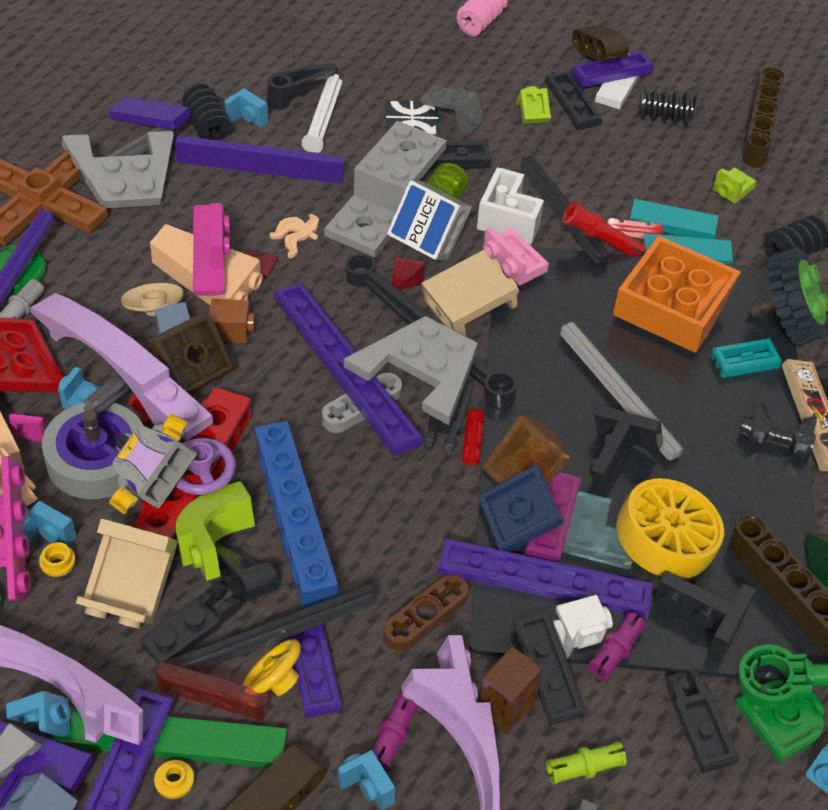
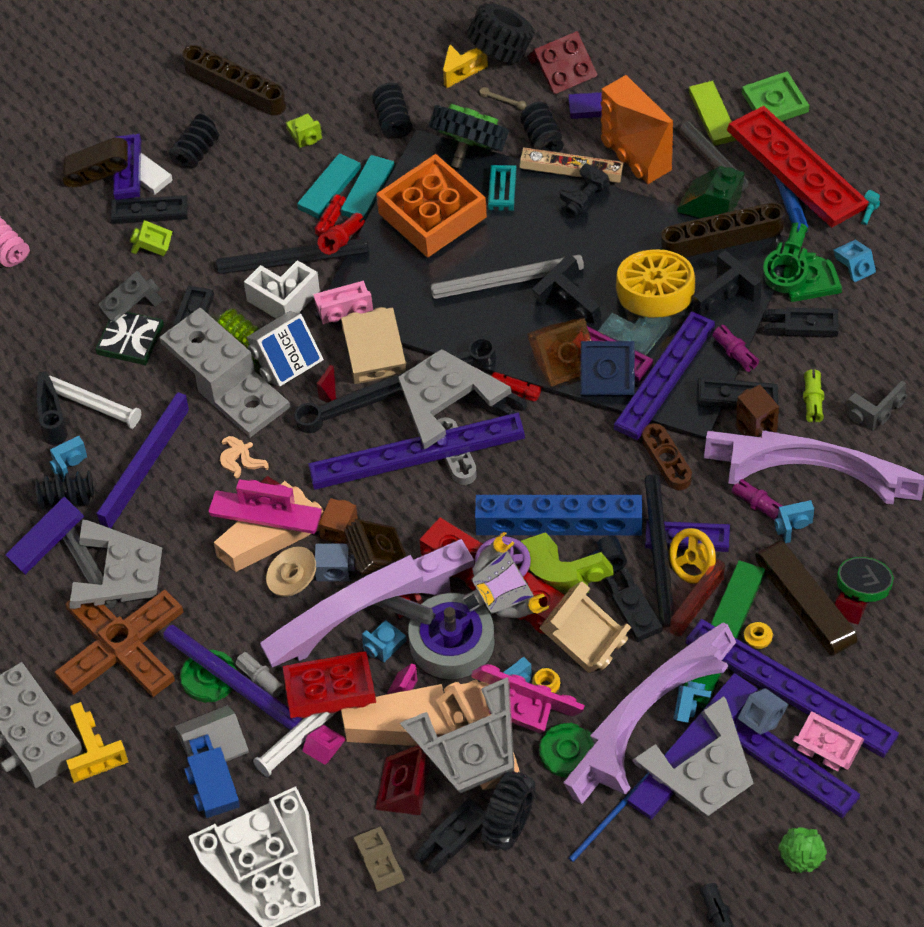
camera: 65 degrees left, 5 degrees up
(582, 623) = (715, 360): white window -> none

